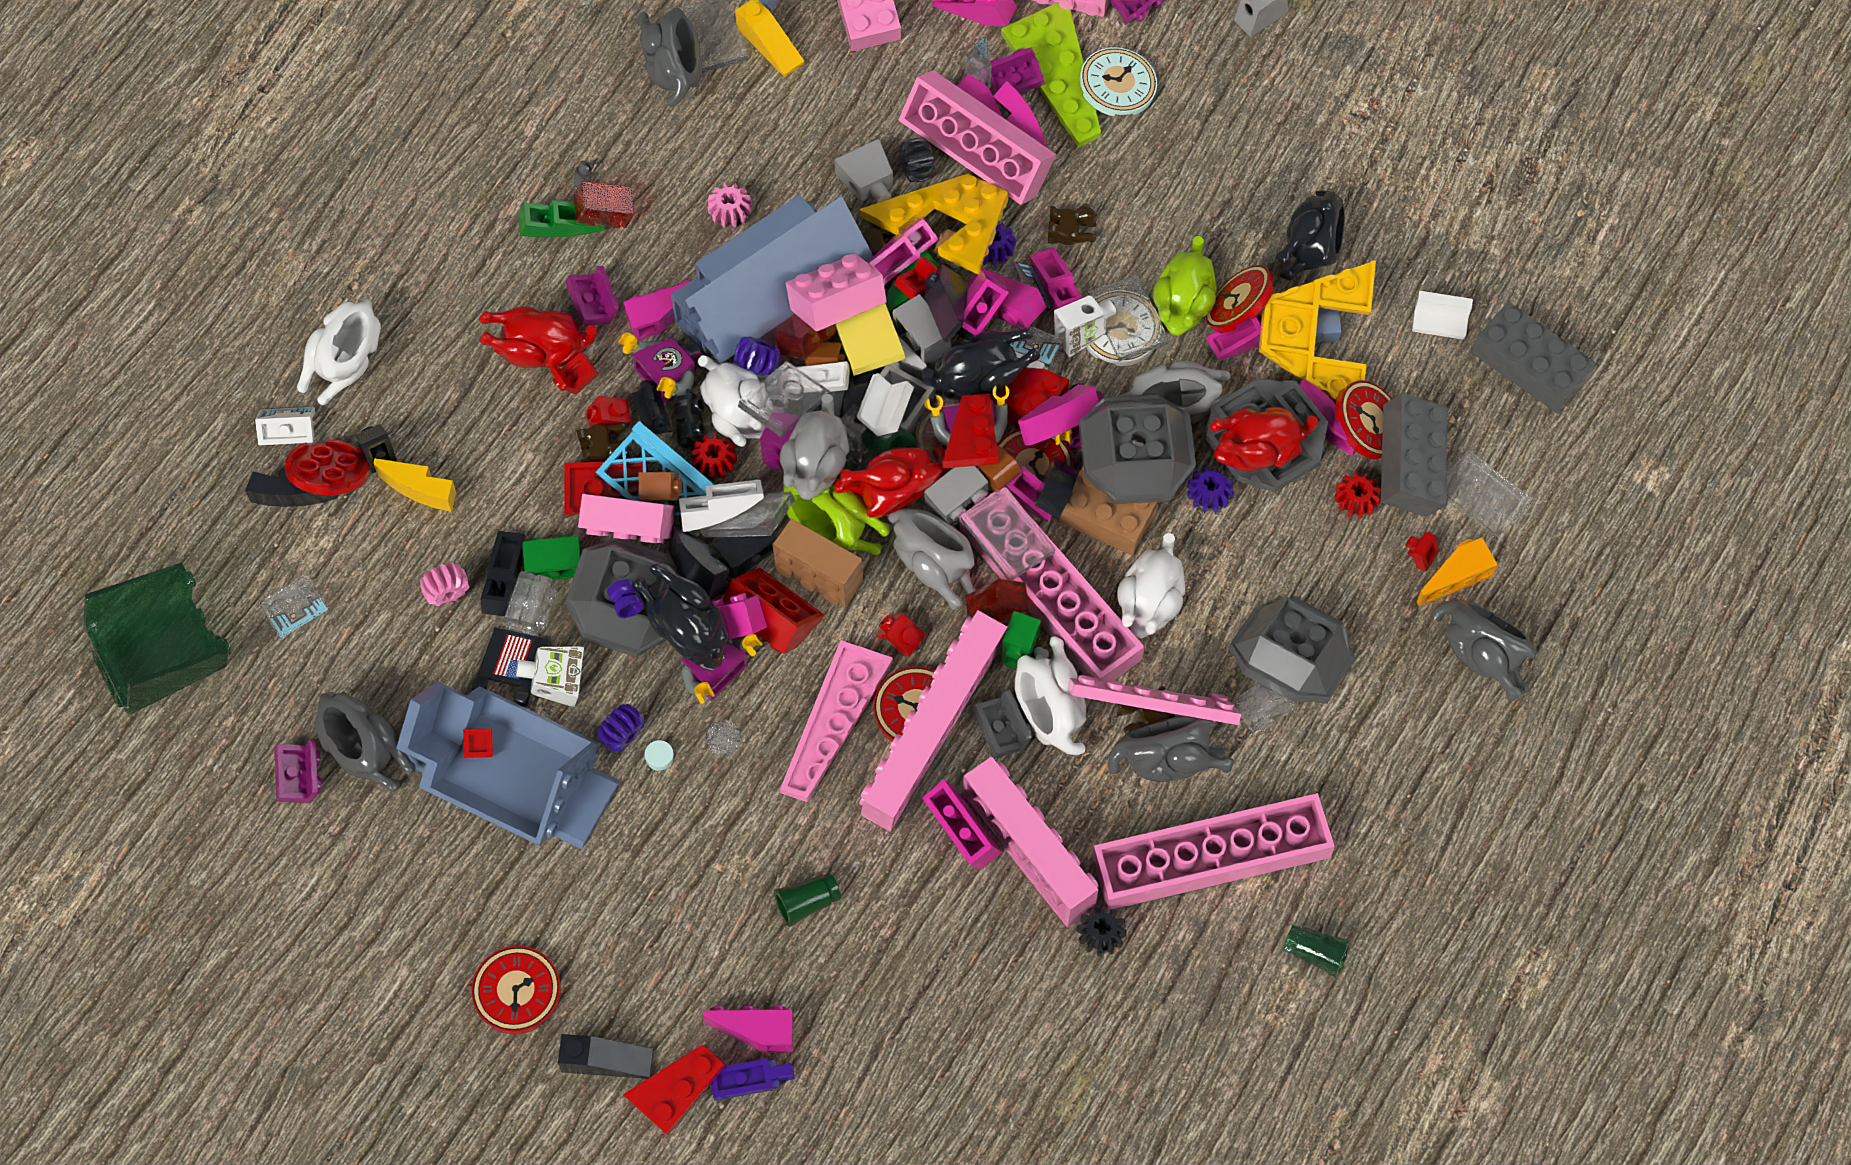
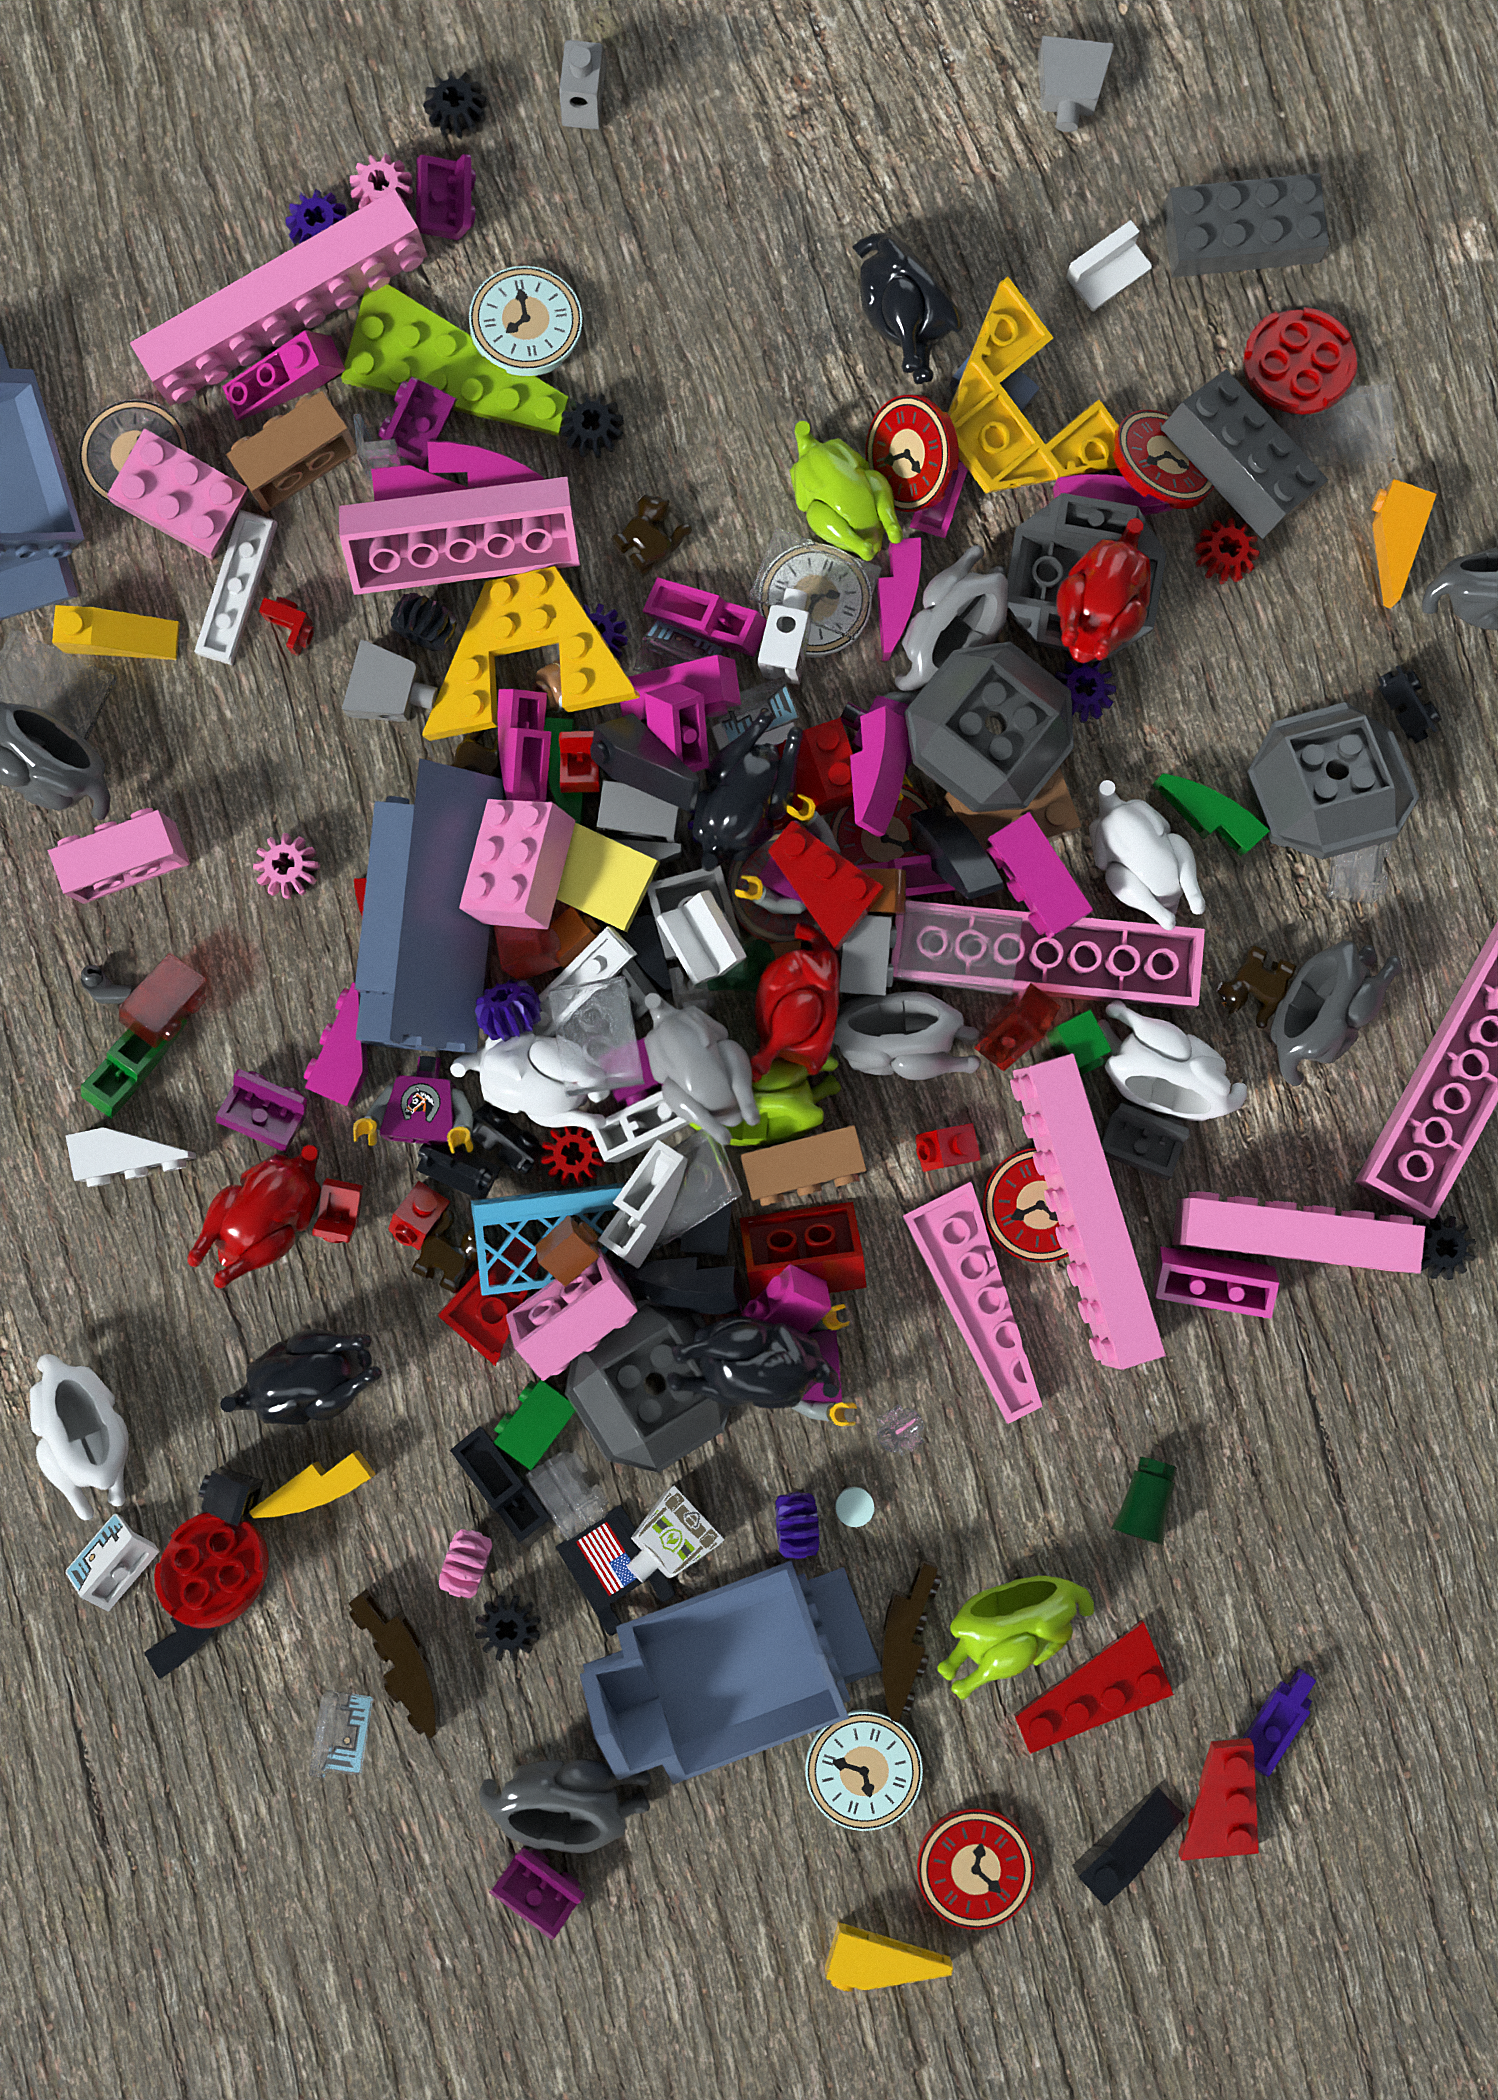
camera: 50 degrees left, 20 degrees up
(151, 637) = (254, 1922): clear green windscreen -> none
(361, 608) = (411, 1674): none -> dark brown slope
(413, 977) = (876, 1961): none -> yellow slope
(424, 628) = (509, 1640): none -> black gear
(470, 428) = (306, 1378): none -> black piece
(478, 743) = (678, 1682): red plate -> none
(500, 248) = (110, 1152): none -> white slope
(517, 884) = (864, 1771): none -> tile
(599, 843) = (901, 1654): none -> dark brown slope
(626, 601) = (667, 1407): dark purple wheel -> none
(657, 126) = (118, 855): none -> bright pink brick
(669, 883) = (1013, 1628): none -> lime piece
(679, 970) = (1103, 1689): none -> red wing
(755, 464) = (637, 1128): none -> white slope
(762, 1029) = (1238, 1669): dark pink slope -> none
(848, 71) = (236, 587): none -> white tile
(857, 103) = (285, 614): none -> red bracket
(938, 32) = (292, 451): none -> medium nougat brick
(1083, 536) = (1037, 876): none -> dark pink brick
(1098, 153) = (592, 411): none -> black gear
(1184, 348) = (898, 593): none -> dark pink slope
(1213, 608) = (1210, 811): none -> green slope
(1215, 708) = (1291, 960): bright pink wing -> none
(1382, 645) = (1405, 689): none -> black hinge
(1423, 550) = (1345, 547): red tile -> none
(1495, 445) = (1300, 361): none -> red tile
(1516, 216) = (1071, 77): none -> light grey torso

